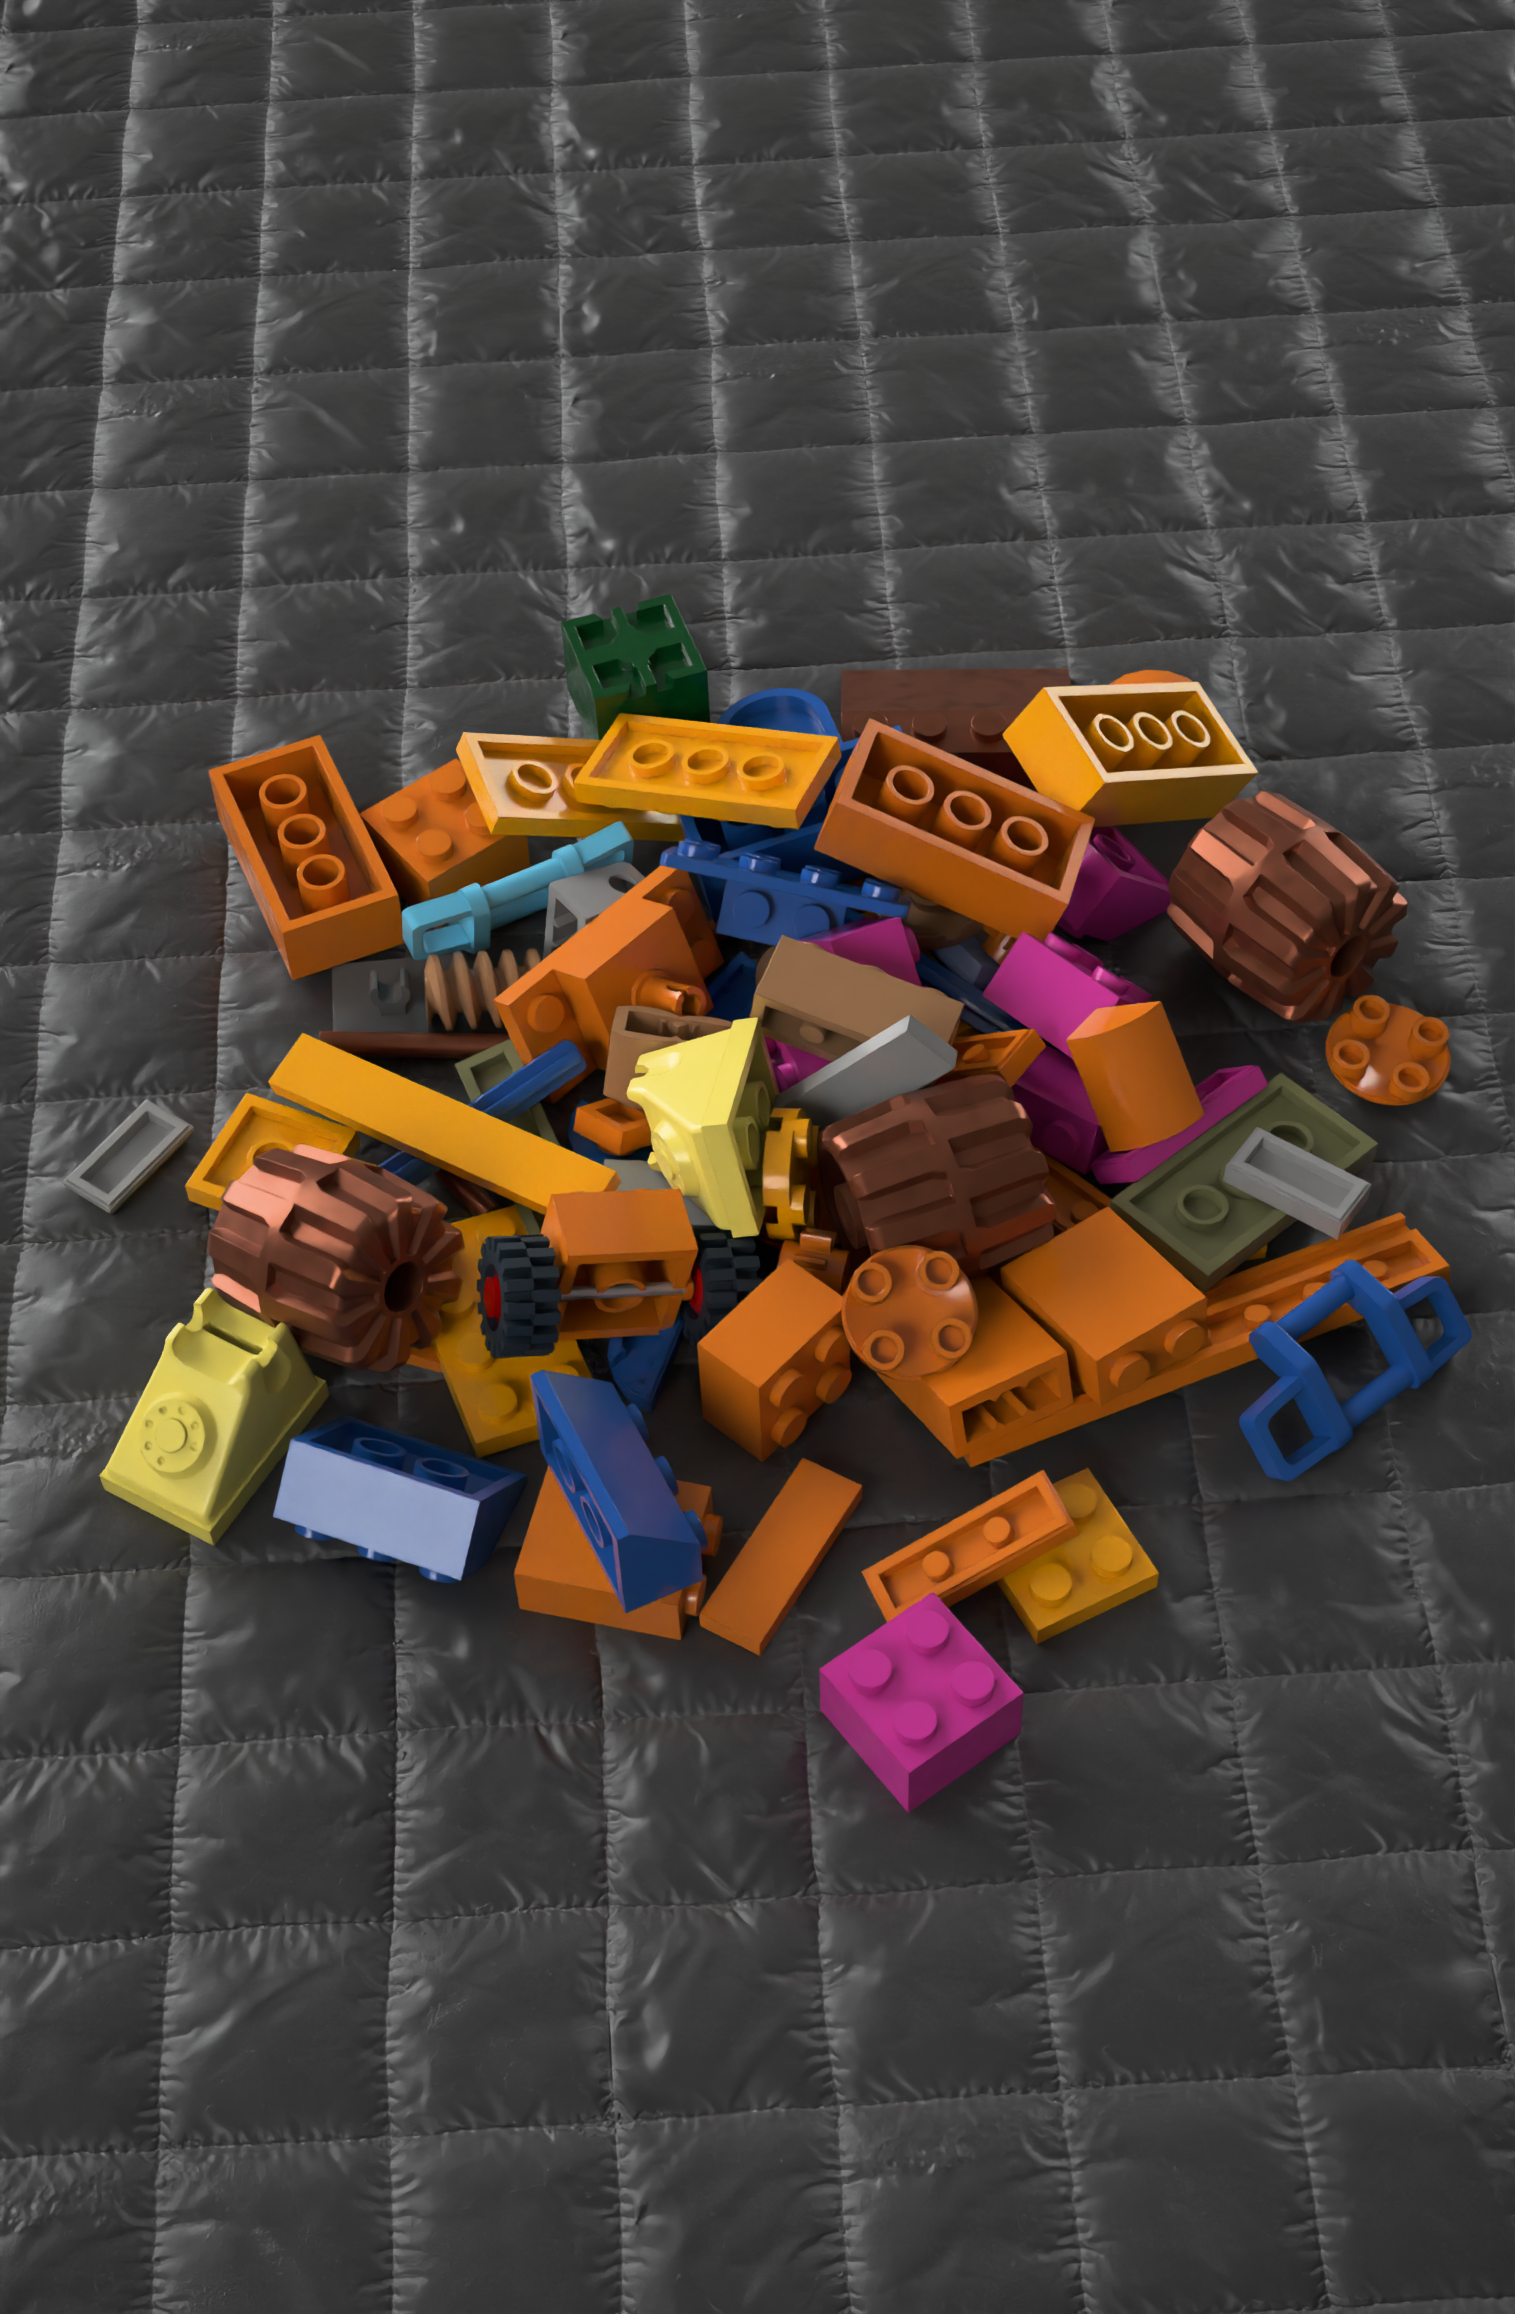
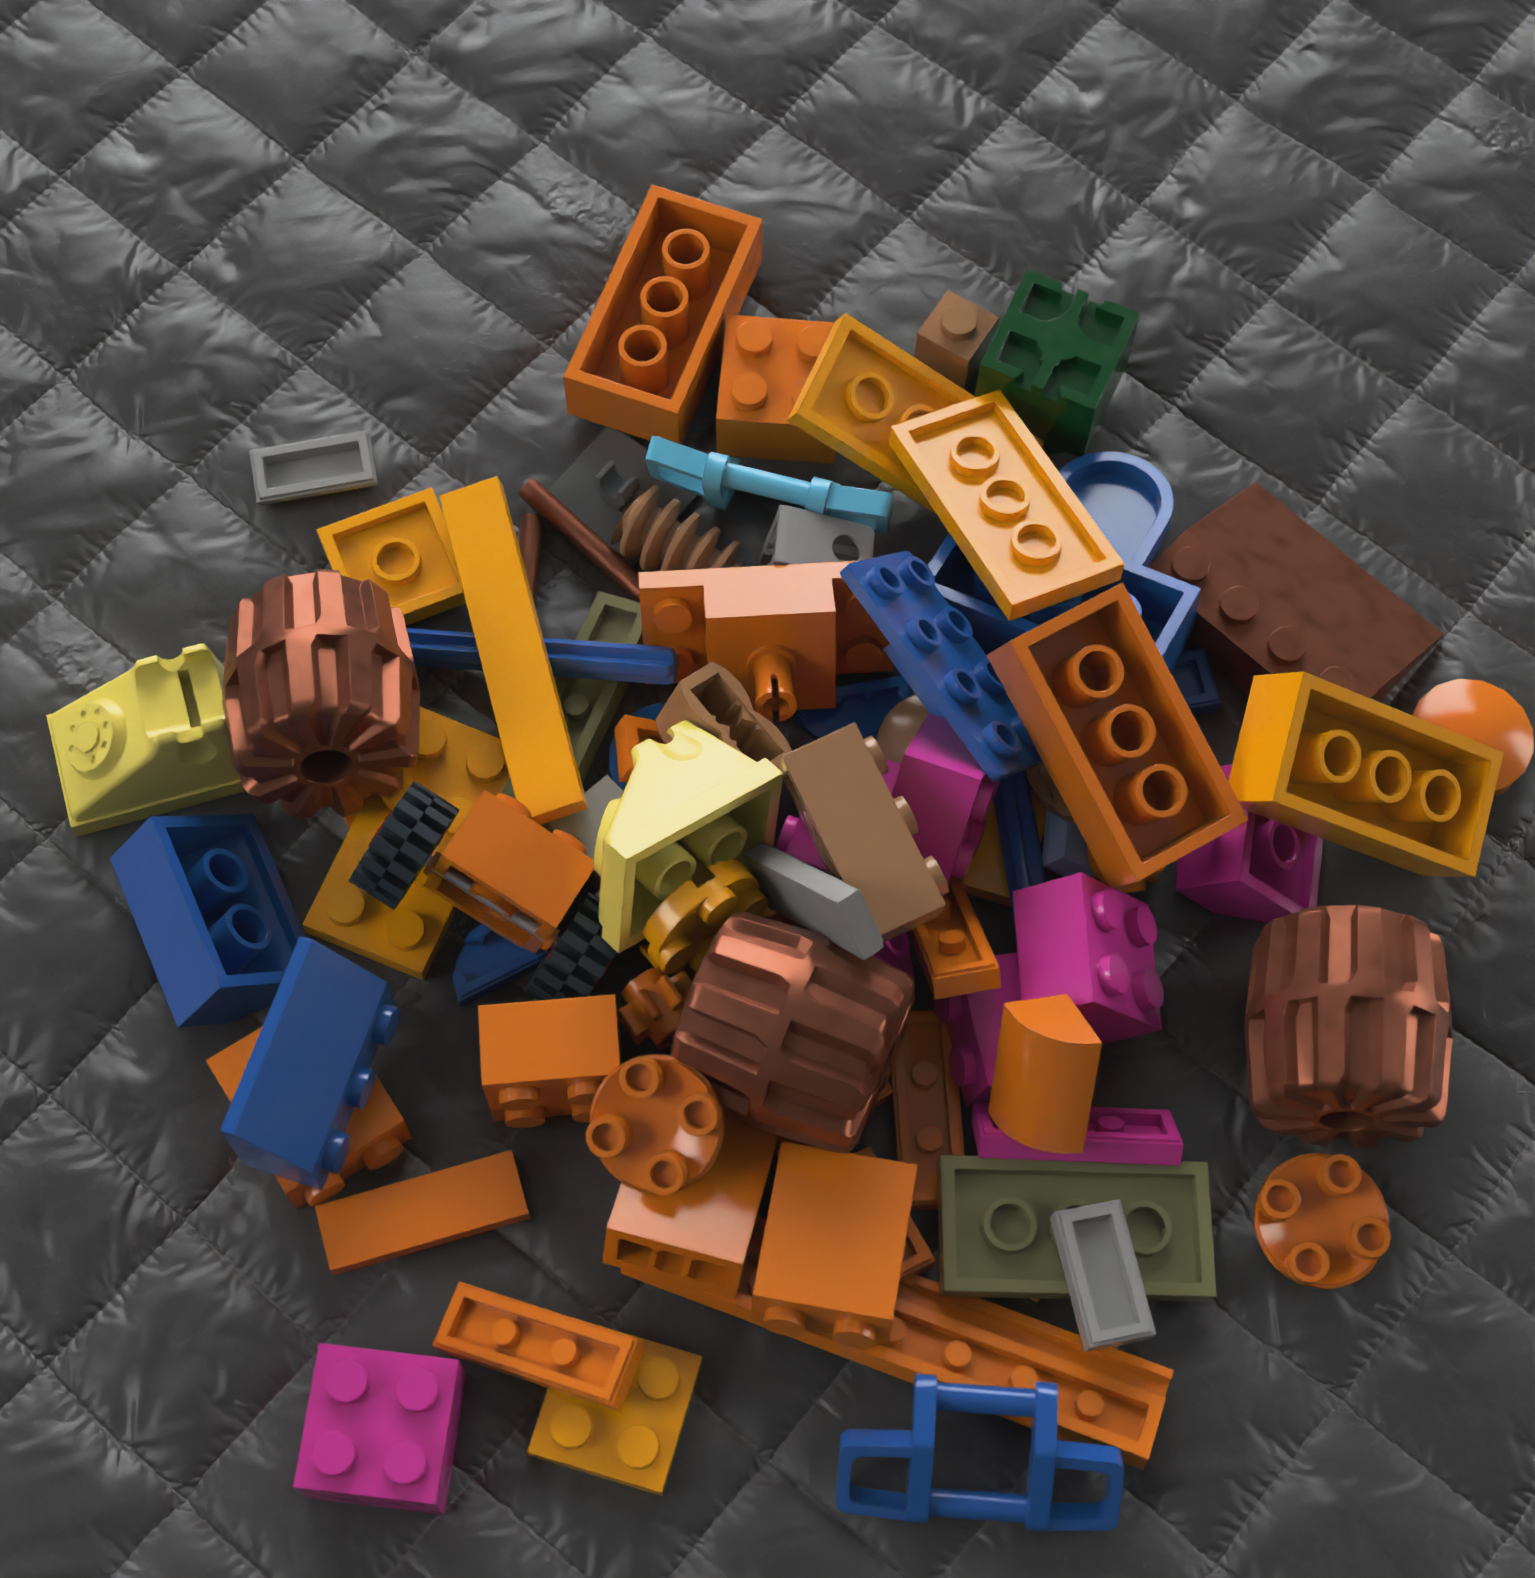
camera: 40 degrees right, 15 degrees up
(540, 710) = (956, 339): none -> medium nougat brick

